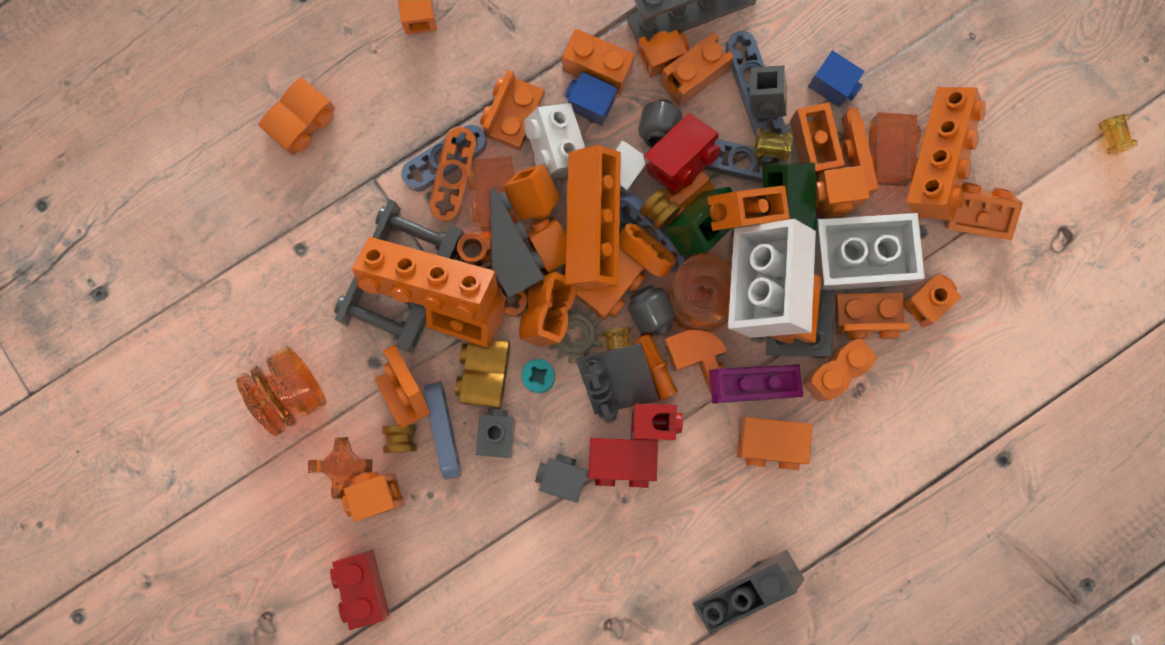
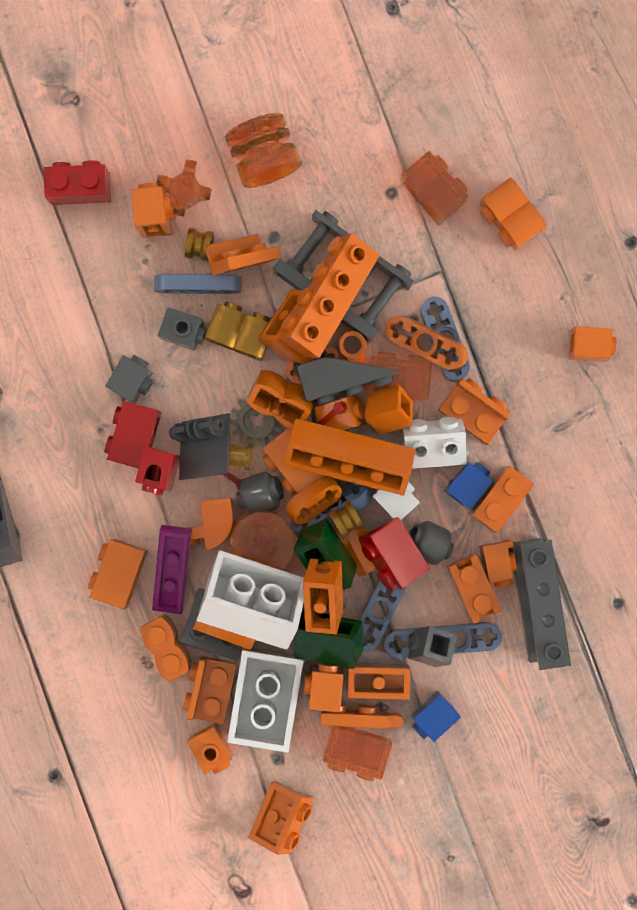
camera: 105 degrees right, 5 degrees up
(285, 202) = (434, 187): none -> clear orange brick
(540, 381) = (227, 383): teal wheel -> none
(544, 242) = (338, 408): none -> clear red hinge
(662, 380) = (208, 485): orange axle -> none
(772, 144) = (384, 639): clear yellow bush -> none
(946, 153) = (339, 796): orange brick -> none

